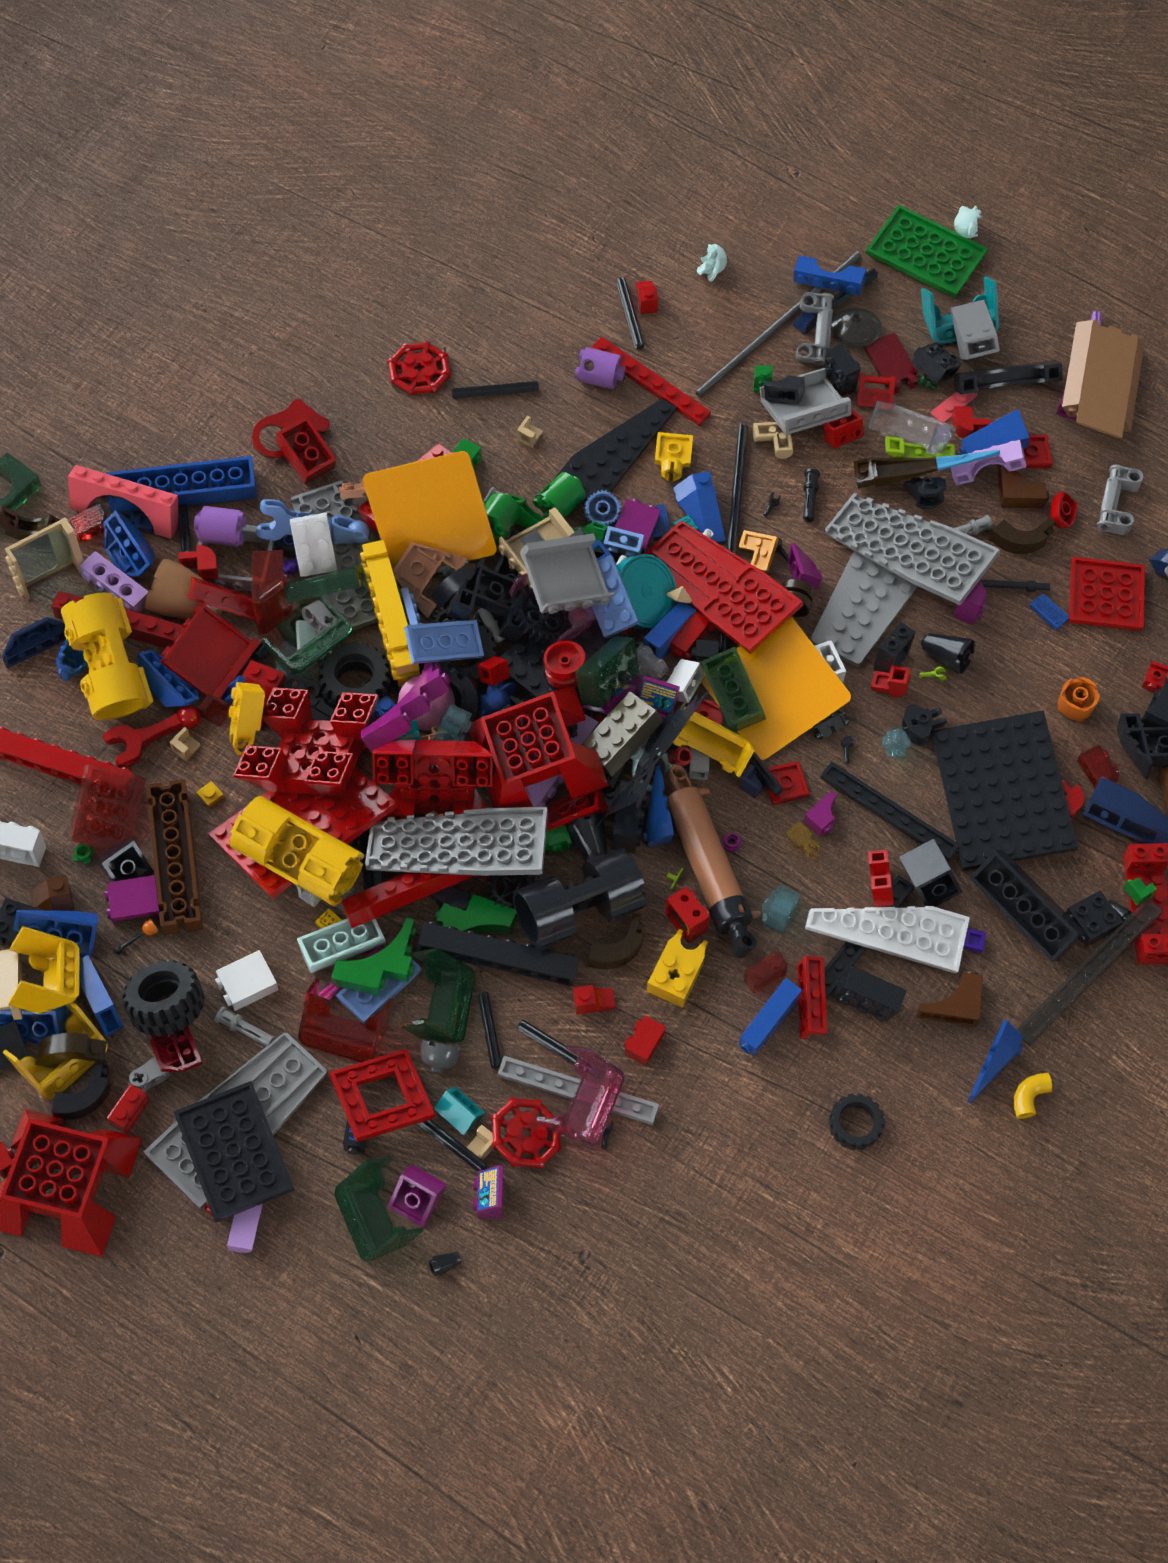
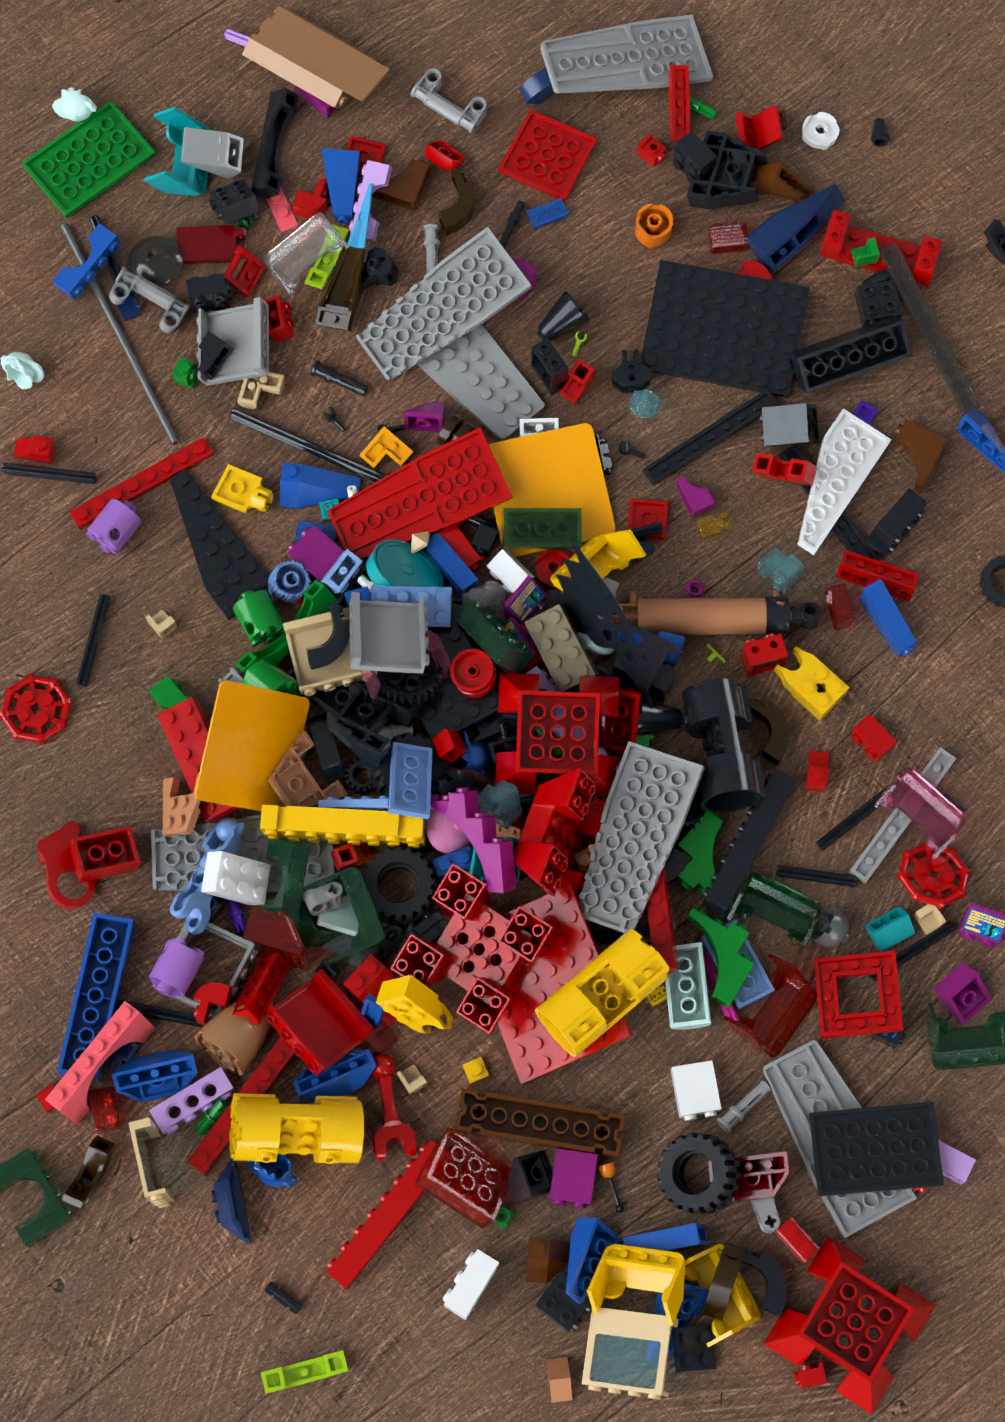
camera: 70 degrees left, 10 degrees up
(366, 631) = (351, 856): none -> red brick

